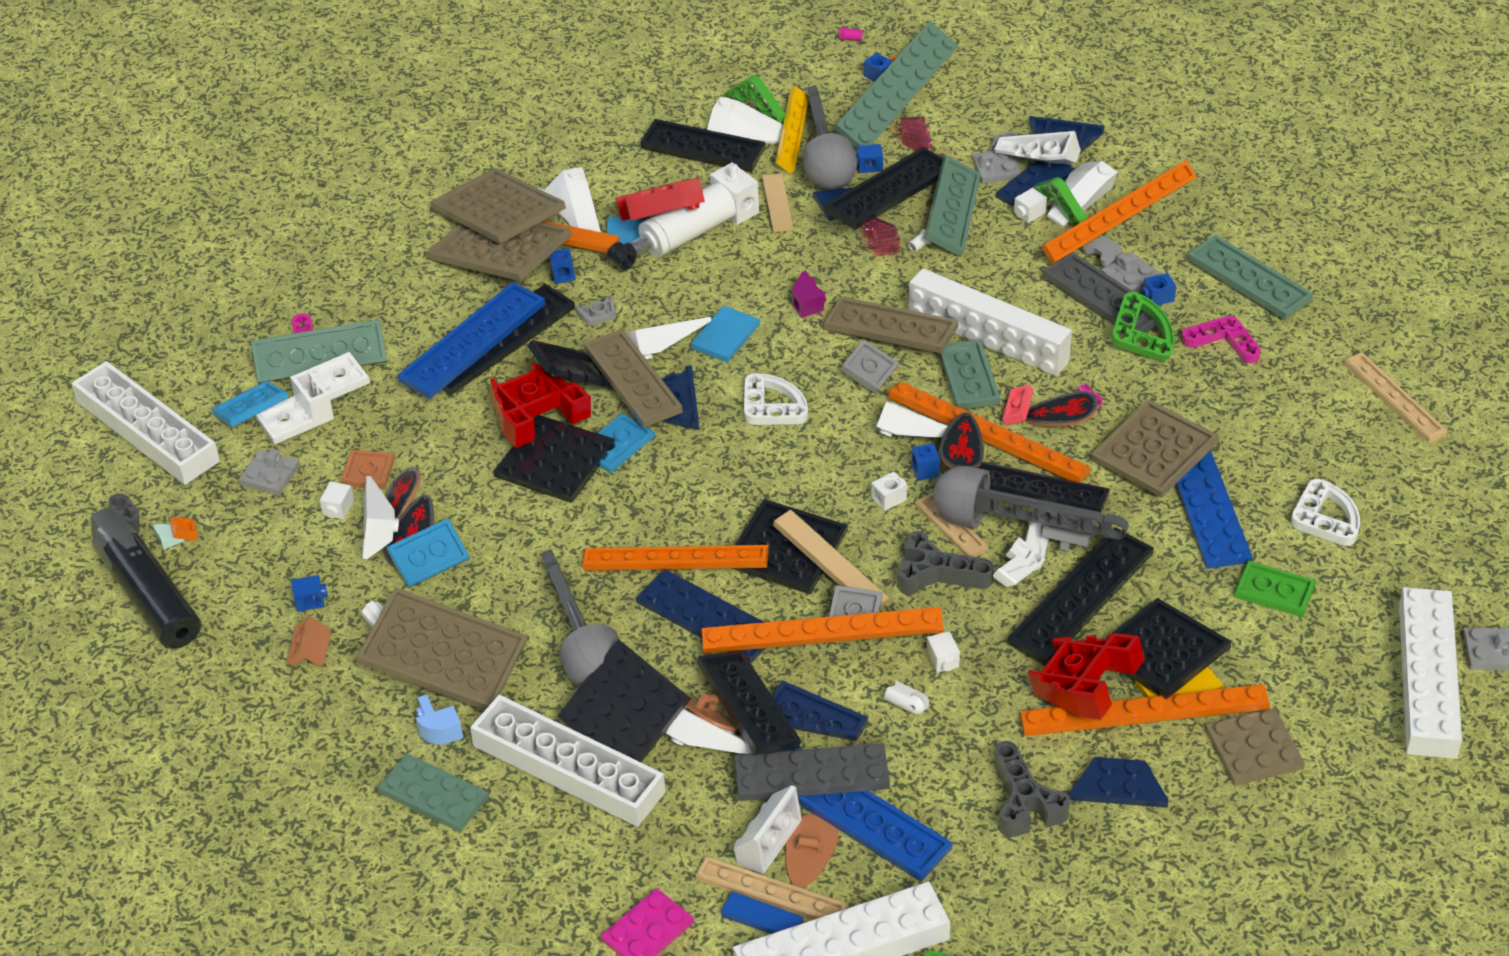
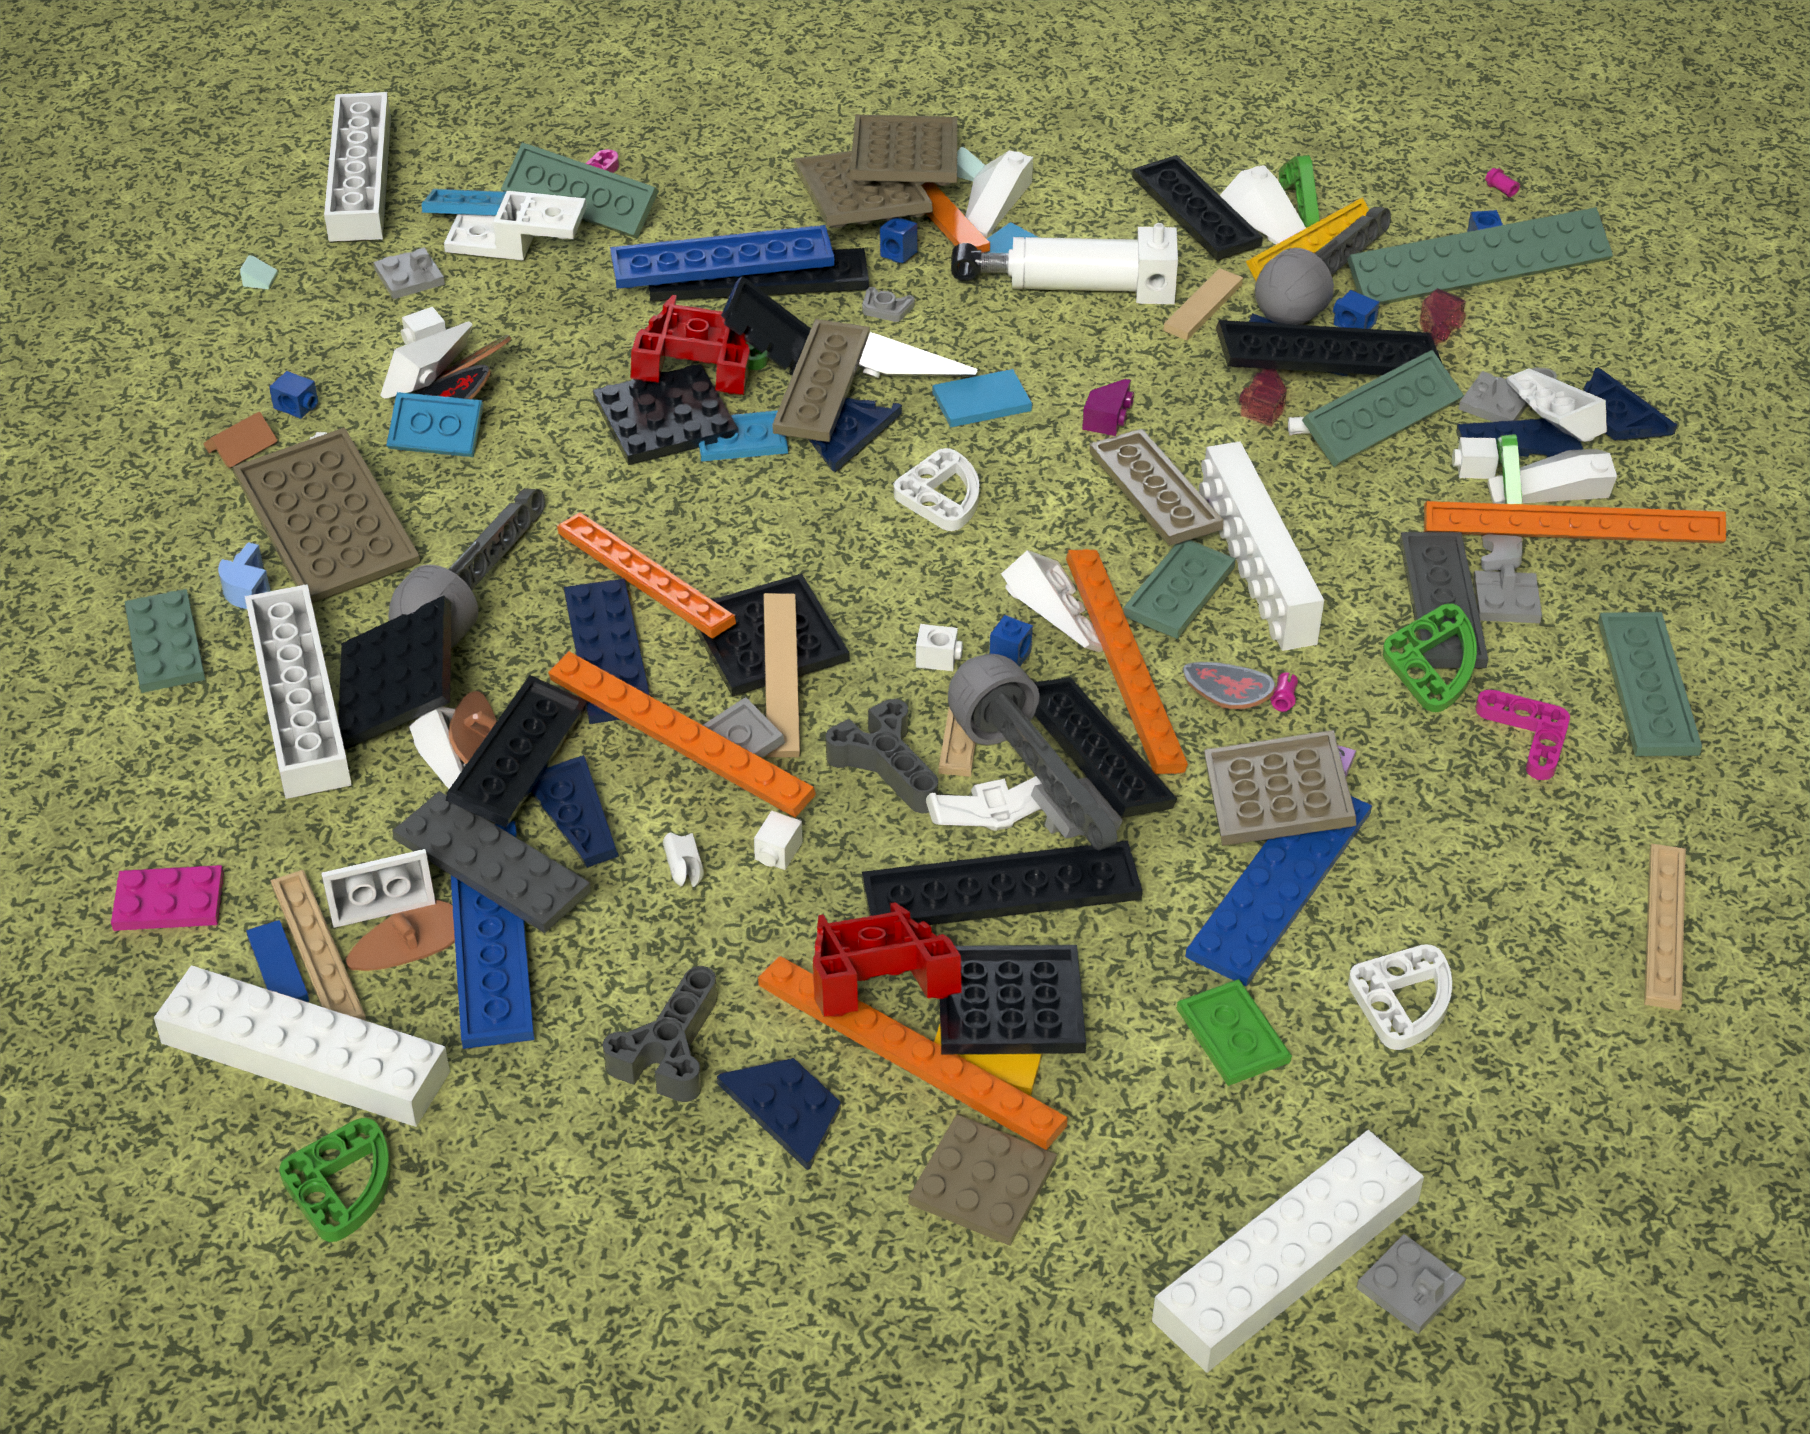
camera: 40 degrees right, 0 degrees up
(141, 575) = (183, 288): black piece -> none
(183, 528) = (275, 276): orange tile -> none
(368, 463) = (493, 320): nougat tile -> none
(660, 199) = (1055, 222): wedge -> none
(869, 366) = (1079, 513): light grey hinge -> none
(962, 443) = (1065, 647): shield -> none
(1018, 404) = (1195, 647): coral plate -> none
(1159, 289) = (1513, 630): blue brick -> none

